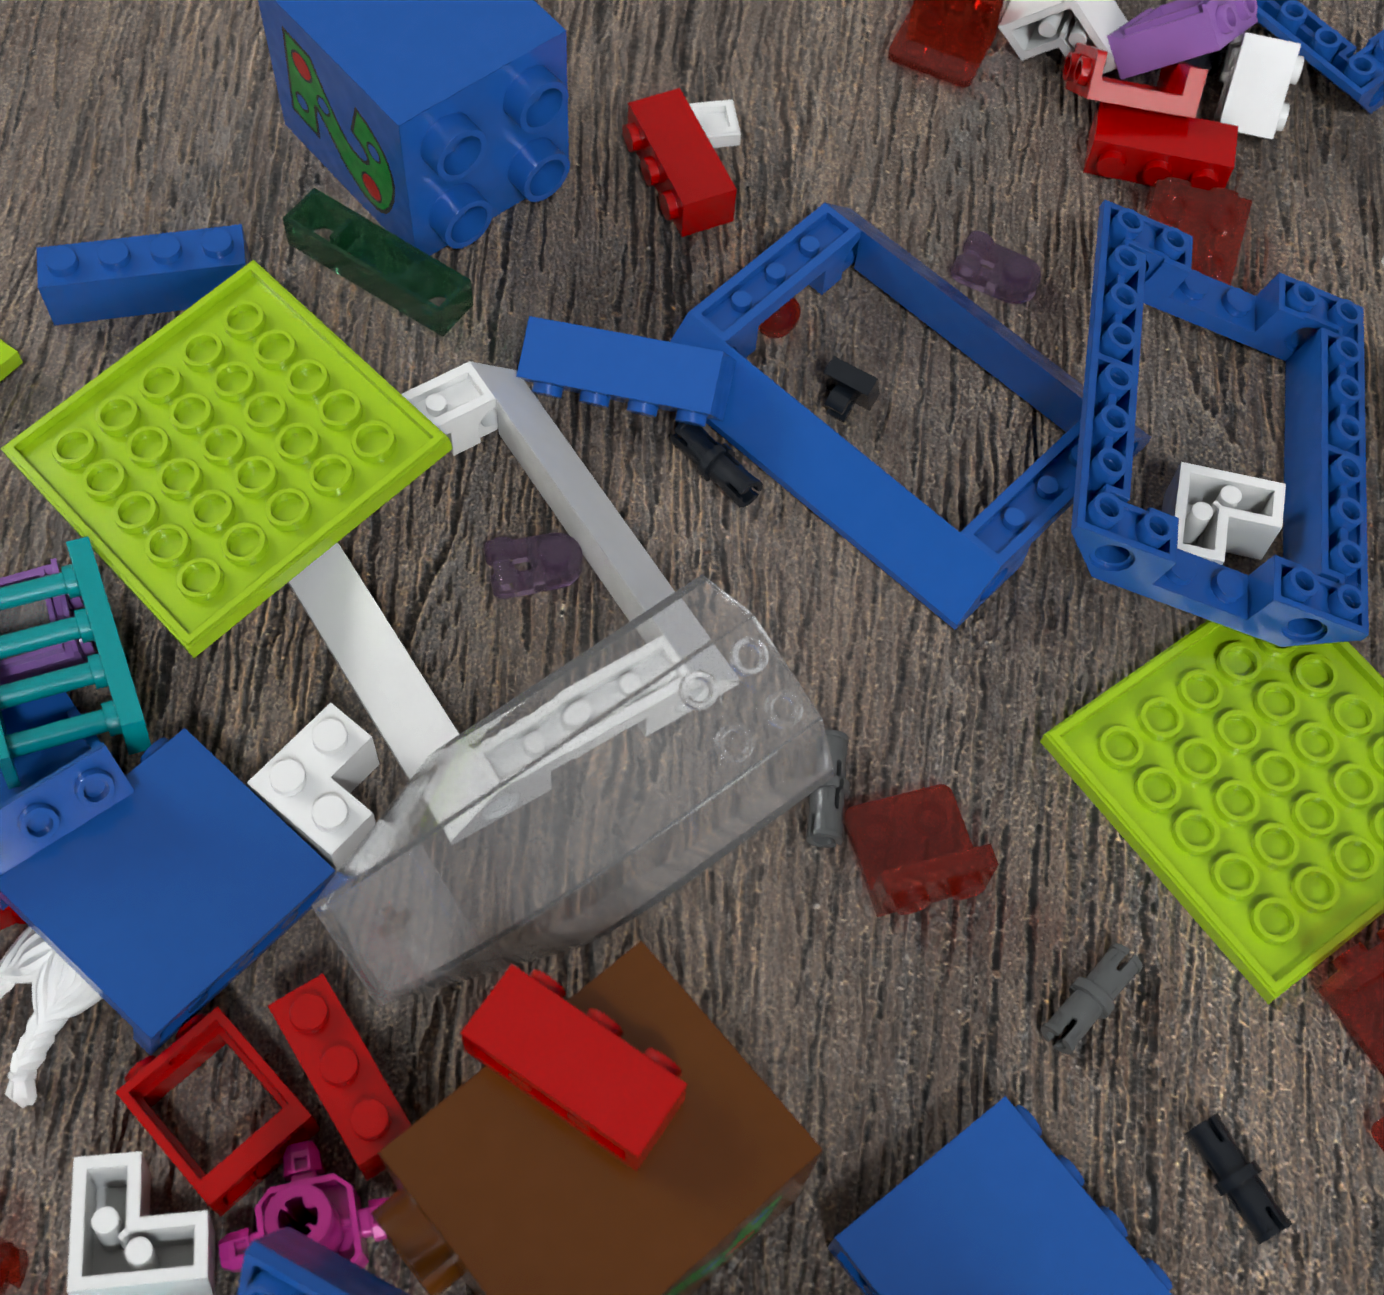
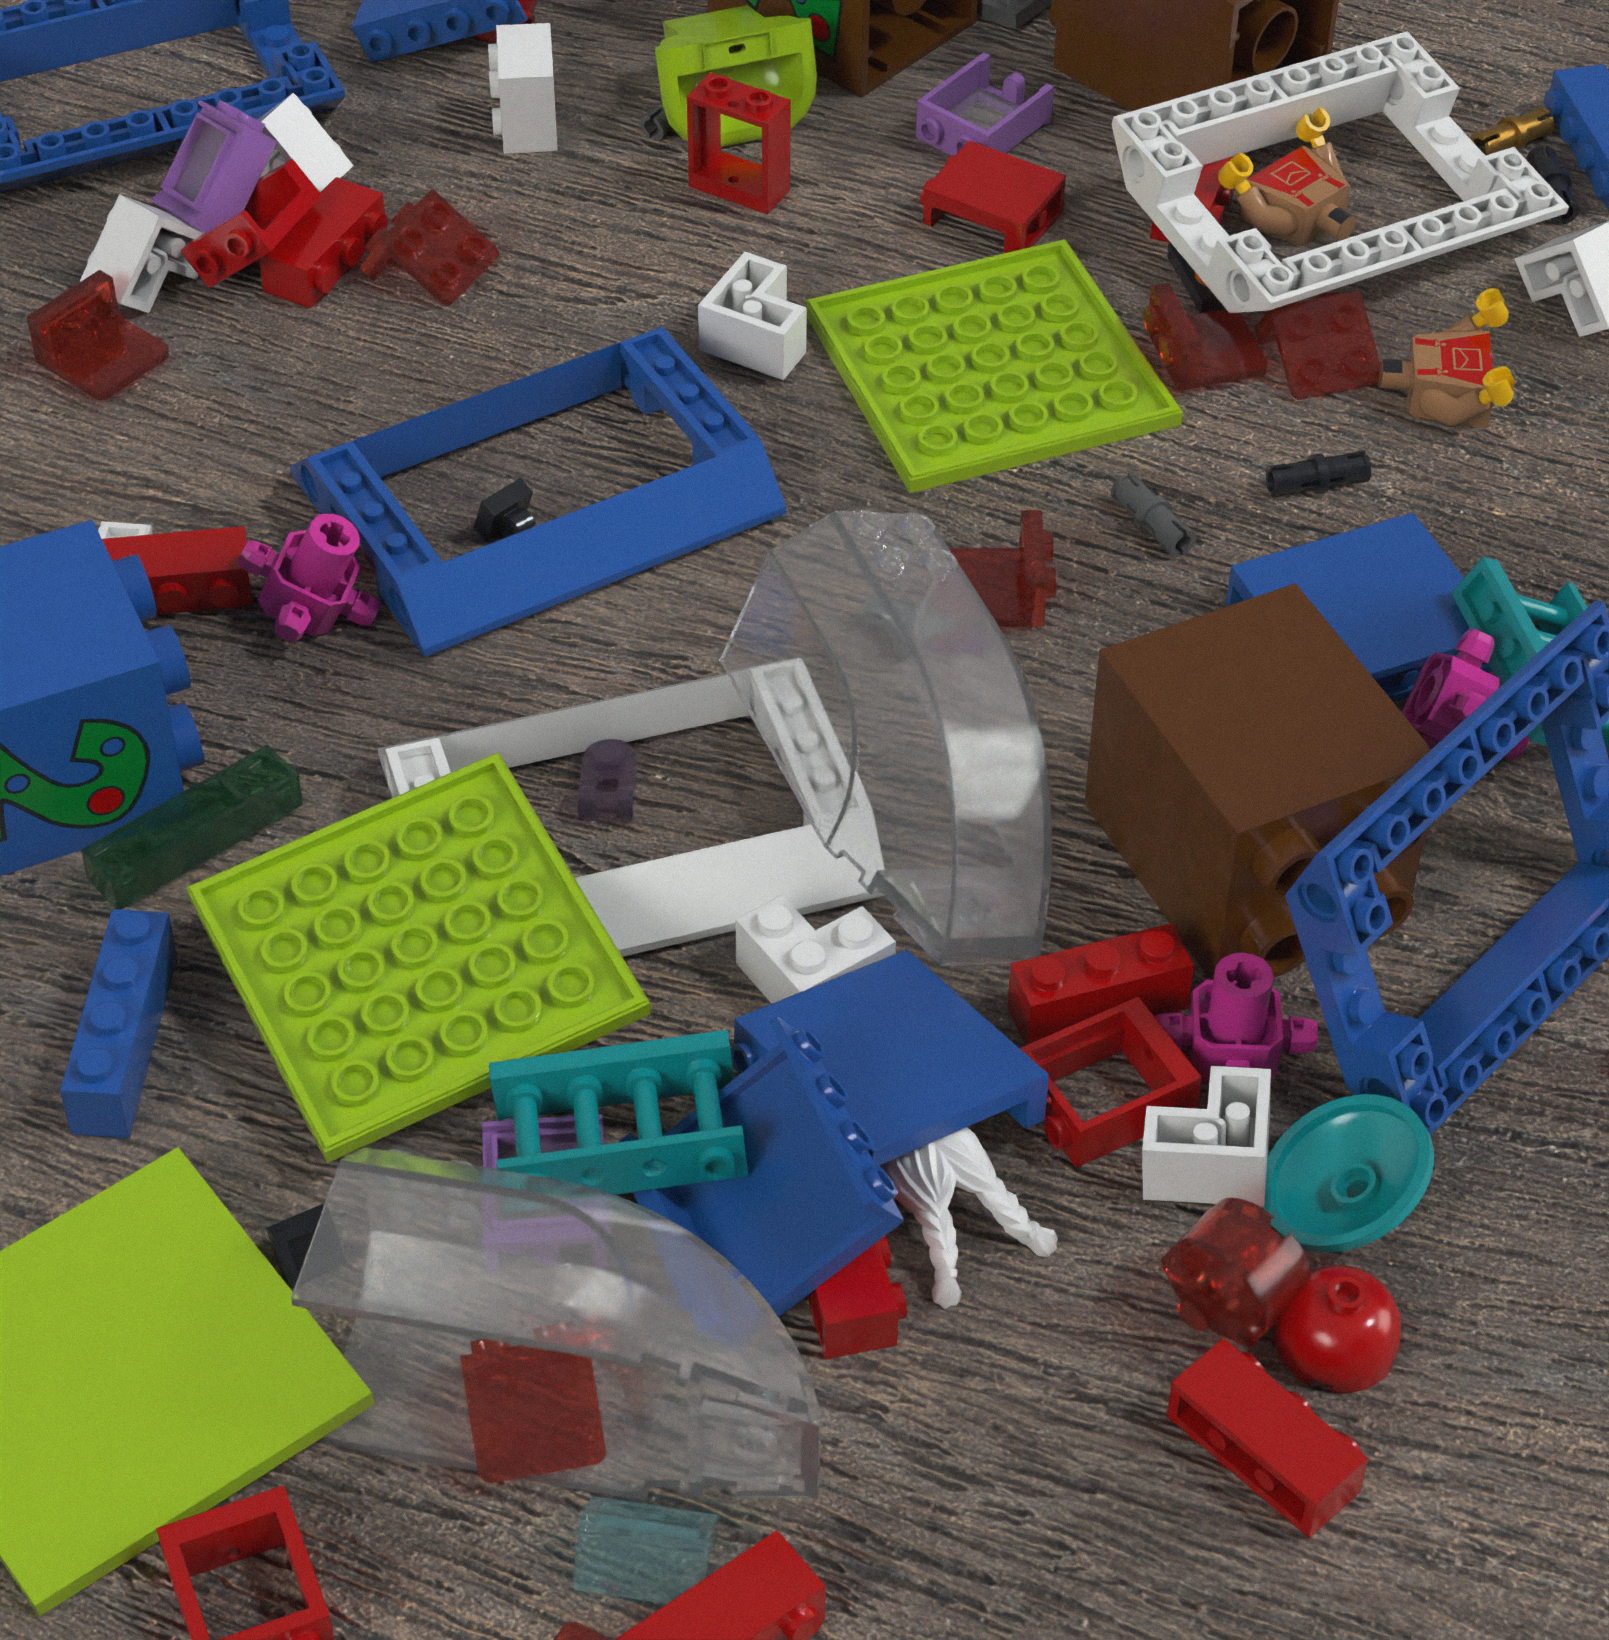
camera: 70 degrees left, 15 degrees down
(575, 1064) = (1204, 688): red brick -> none
(626, 369) = (433, 647): blue brick -> none
(683, 274) = (311, 578): none -> dark pink piece
(717, 463) = (549, 625): black pin -> none
(1013, 274) = (406, 389): clear purple plate -> none
(1323, 578) = (697, 231): blue slope -> none

